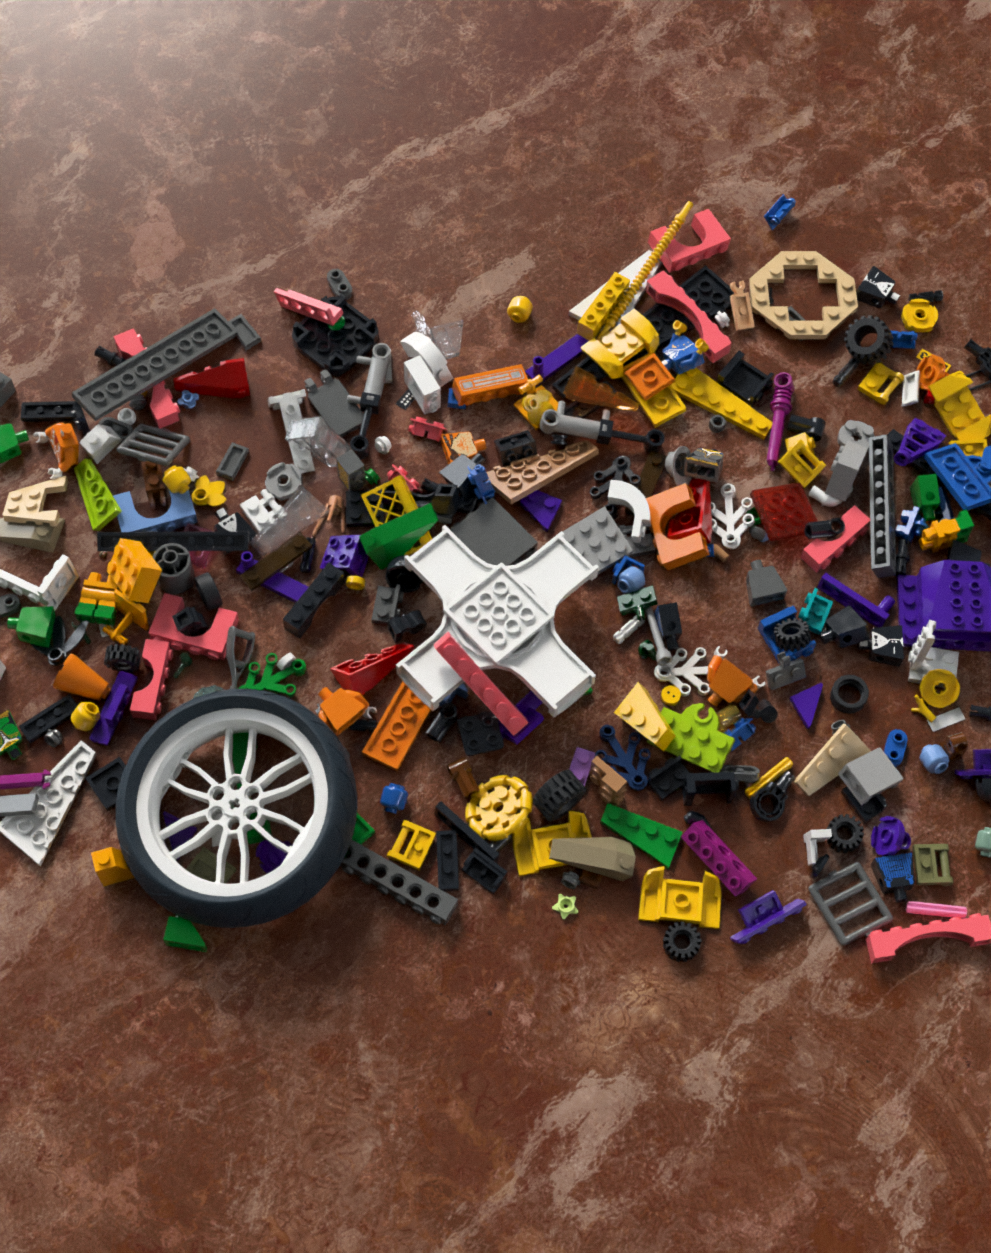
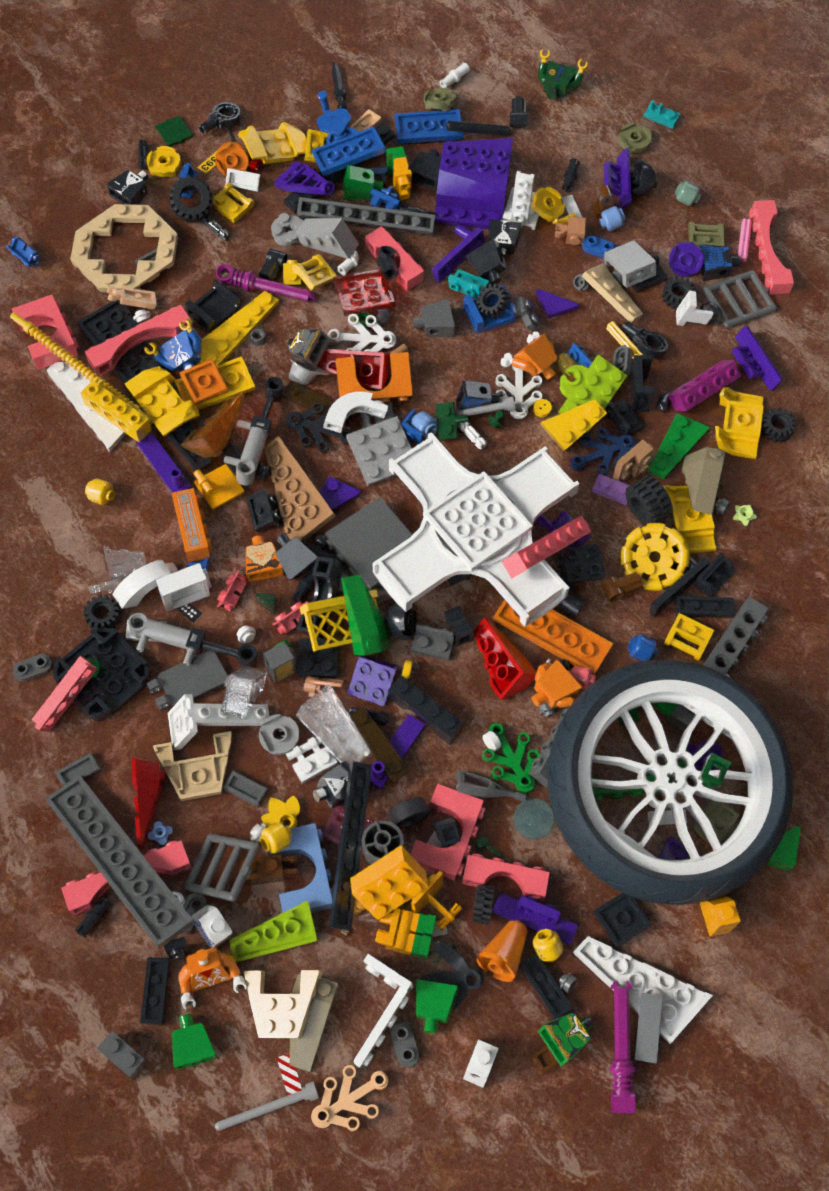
camera: 85 degrees left, 0 degrees up
(217, 823) = (708, 780): none -> dark green window
(242, 423) = (200, 775): none -> tan wing
(355, 739) = (583, 676): none -> coral head
(394, 319) = (97, 604): none -> black tyre
(415, 461) = (267, 601): none -> clear green slope
(482, 489) = (314, 537): blue hinge -> none
(540, 405) = (224, 482): yellow plate -> none
(756, 708) = (562, 337): black leg -> none
(846, 707) = (547, 281): black tyre -> none
(908, 718) = (573, 230): none -> nougat brick
(964, 321) = (173, 131): none -> dark green piece

